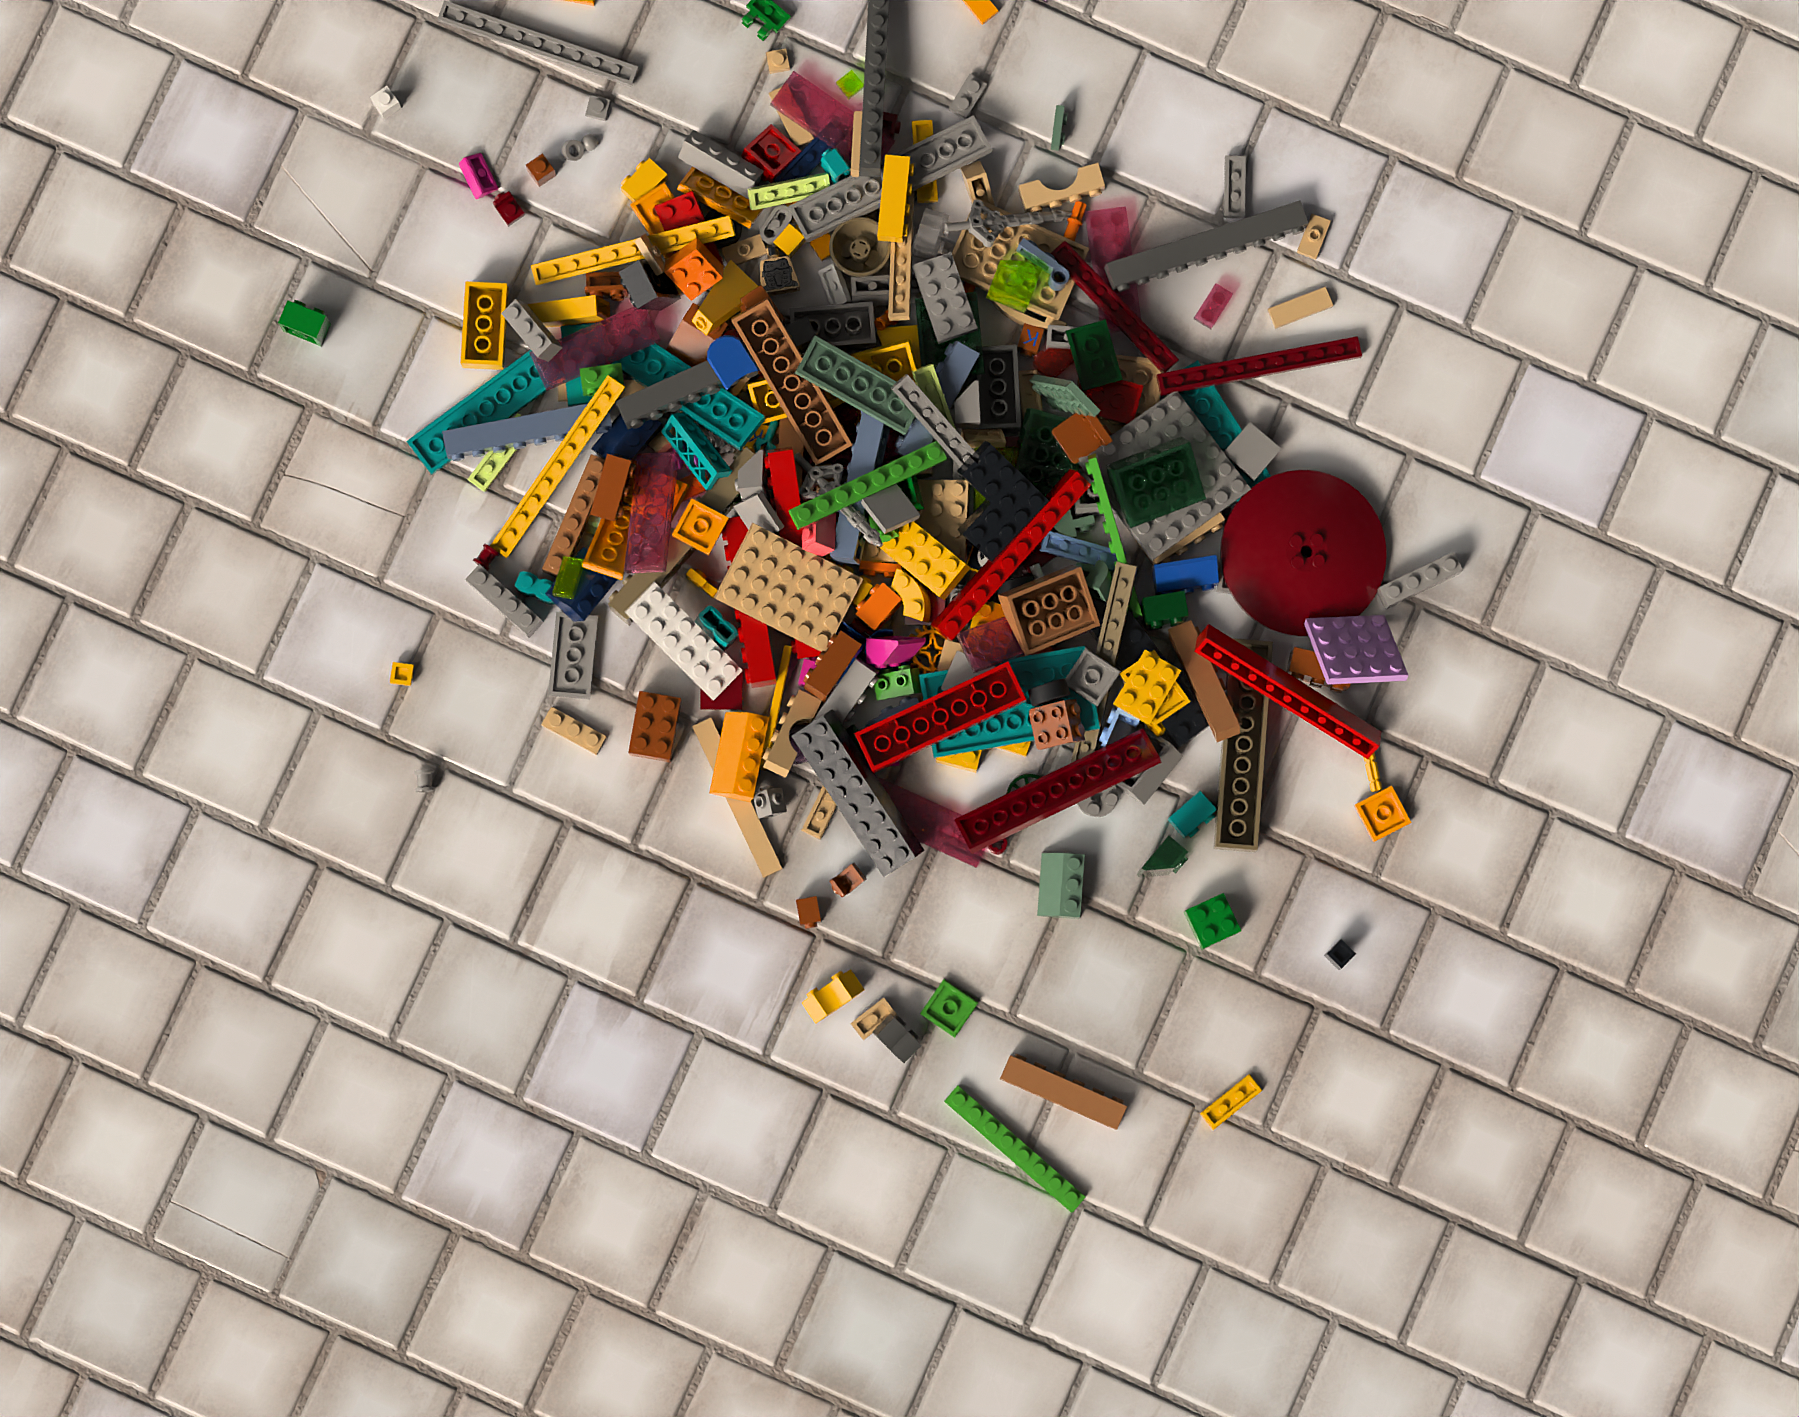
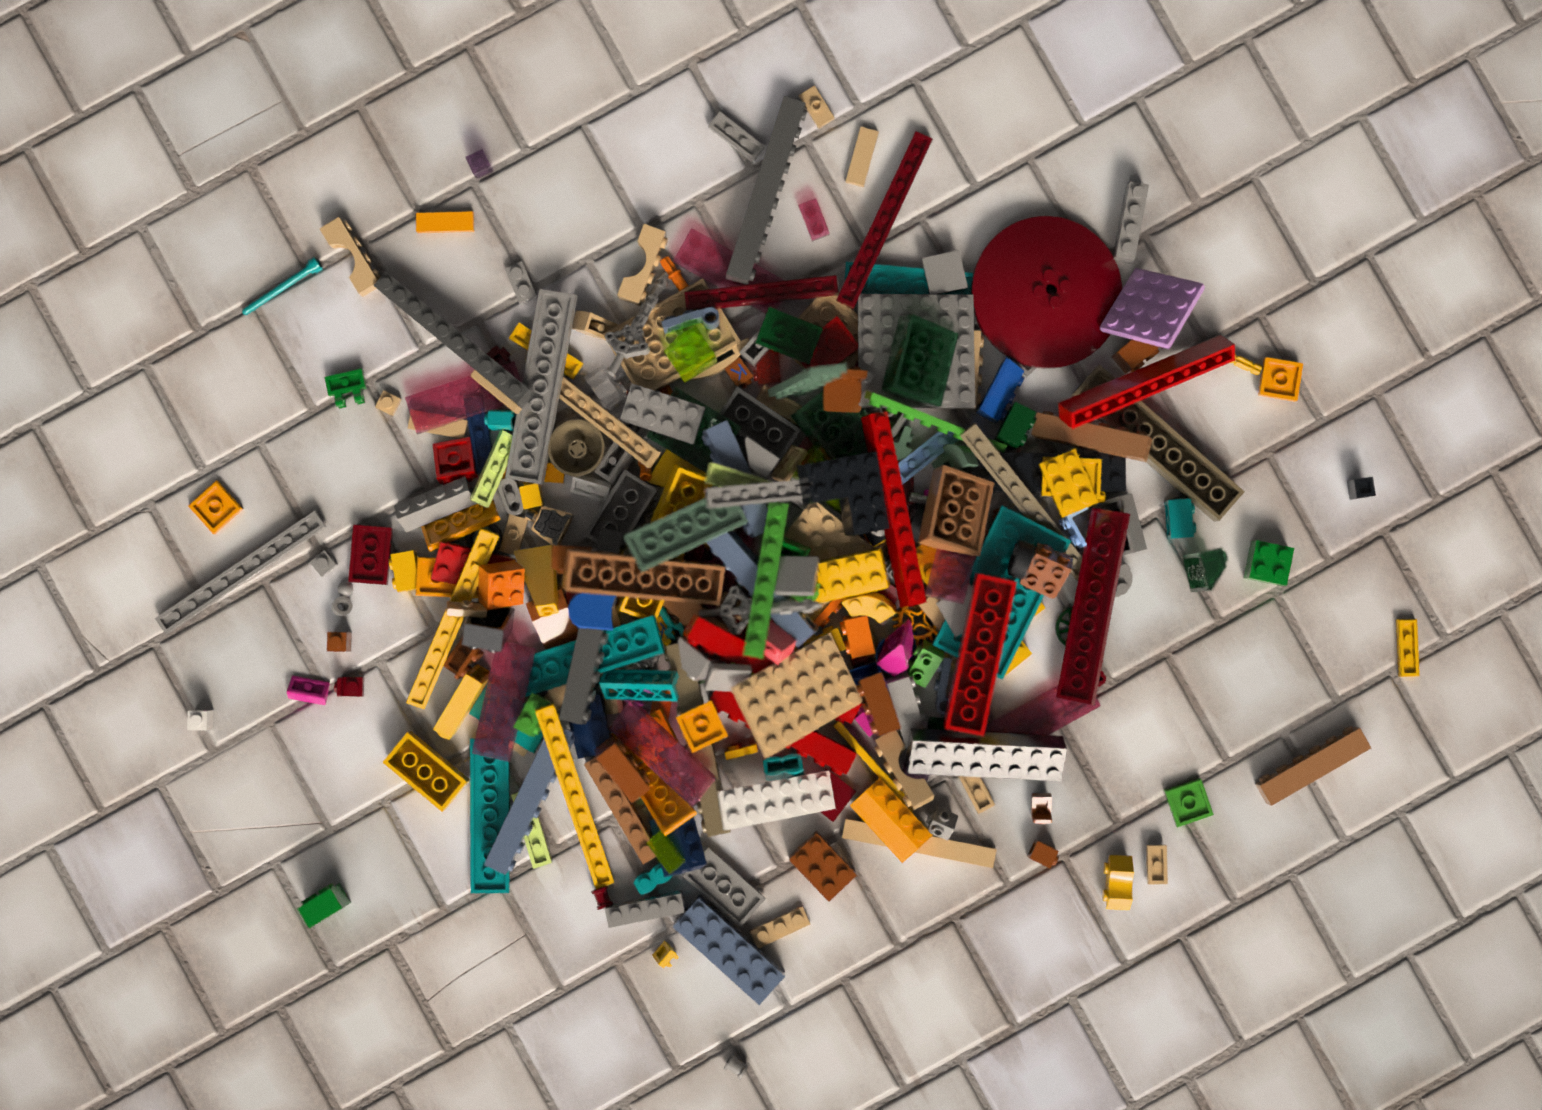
camera: 50 degrees left, 5 degrees up
(401, 674) = (643, 1024): yellow plate -> none
(476, 646) = (664, 954): none -> yellow tile
(522, 699) = (729, 950): none -> sand blue brick
(532, 330) = (457, 740): light grey brick -> none
(635, 142) = (370, 554): none -> dark red plate
(850, 84) = (446, 362): clear neon green plate -> none
(894, 198) = (559, 395): yellow brick -> none
(897, 1038) = (1185, 858): dark grey brick -> none
(1014, 1149) = (1326, 831): bright green plate -> none
(1059, 120) = (589, 227): sand green plate -> none
(1061, 885) = (1160, 653): sand green slope -> none
(1091, 677) = (1030, 518): light grey tile -> none

